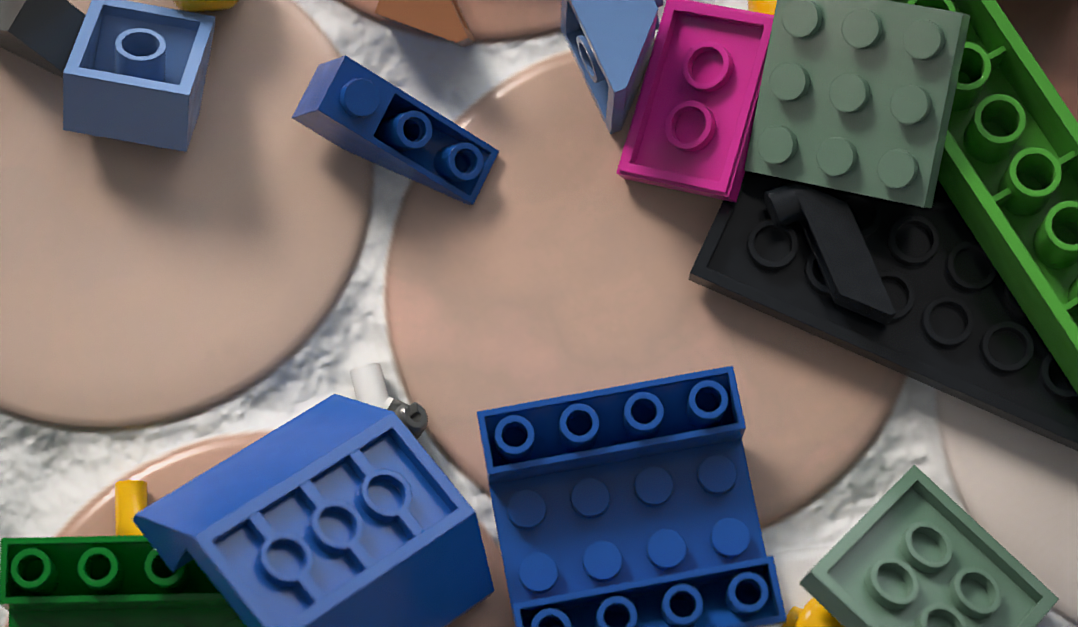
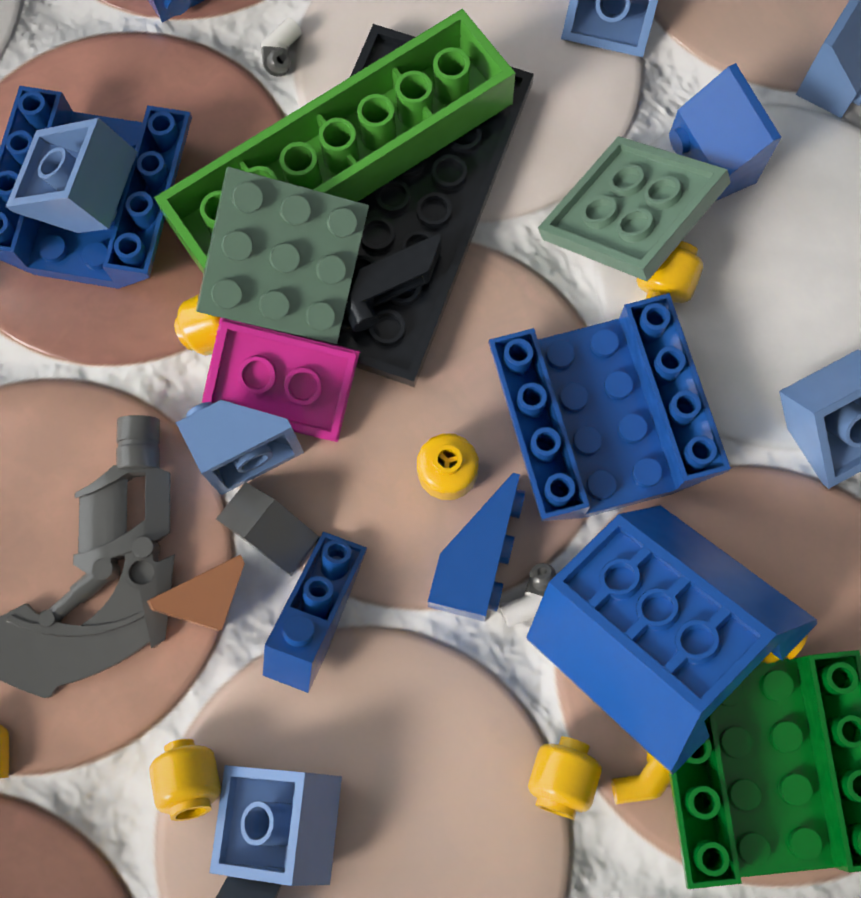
camera: 90 degrees left, 0 degrees up
(152, 416) = (564, 777): none -> yellow head
(433, 327) = (469, 563): none -> blue slope
(507, 80) = (268, 527): none -> dark grey slope
(567, 325) = (447, 482): none -> yellow head

